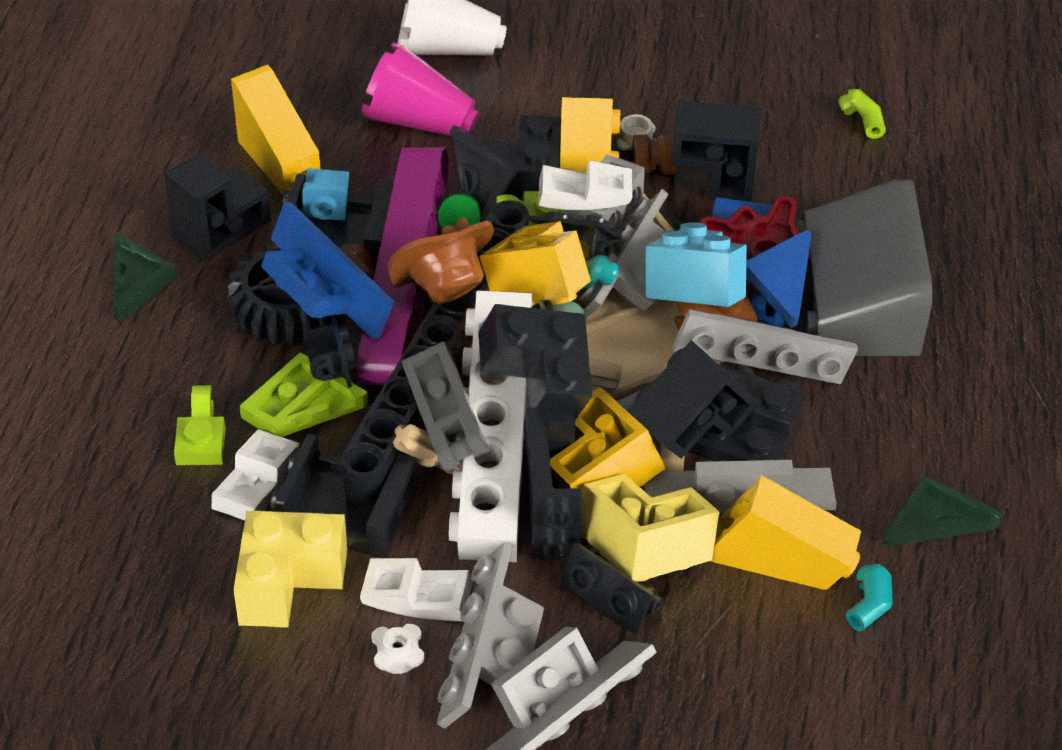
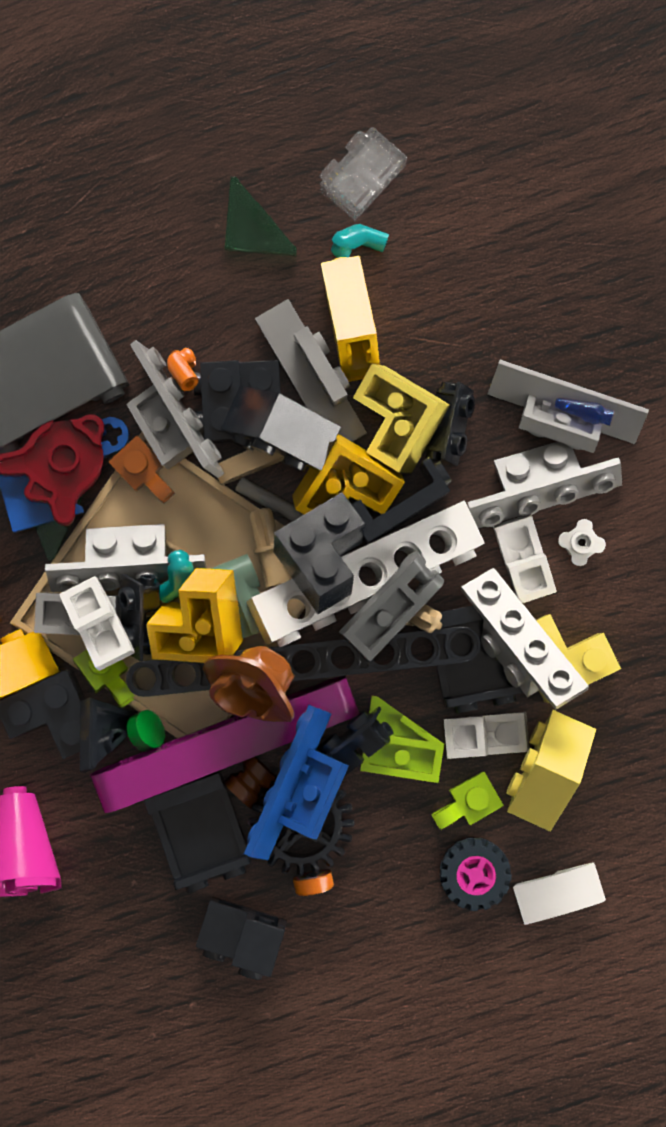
camera: 115 degrees left, 40 degrees up
(48, 461) = (559, 893): none -> white slope
(127, 402) = (481, 890): none -> black wheel
(137, 275) = (337, 960): clear green tile -> none
(181, 495) = (550, 770): none -> light yellow brick
(219, 277) = (313, 883): none -> orange tile
(271, 128) = (135, 938): yellow slope -> none
(325, 194) = (179, 856): dark azure bracket -> none
(329, 505) = (521, 643): none -> bracket
(543, 705) = (587, 411): none -> clear blue piece
(696, 267) = (136, 498): medium azure brick -> none
(781, 275) = (89, 431): blue tile -> none
(812, 380) = (180, 367): none -> orange arm
(949, 625) = (362, 172): none -> clear brick

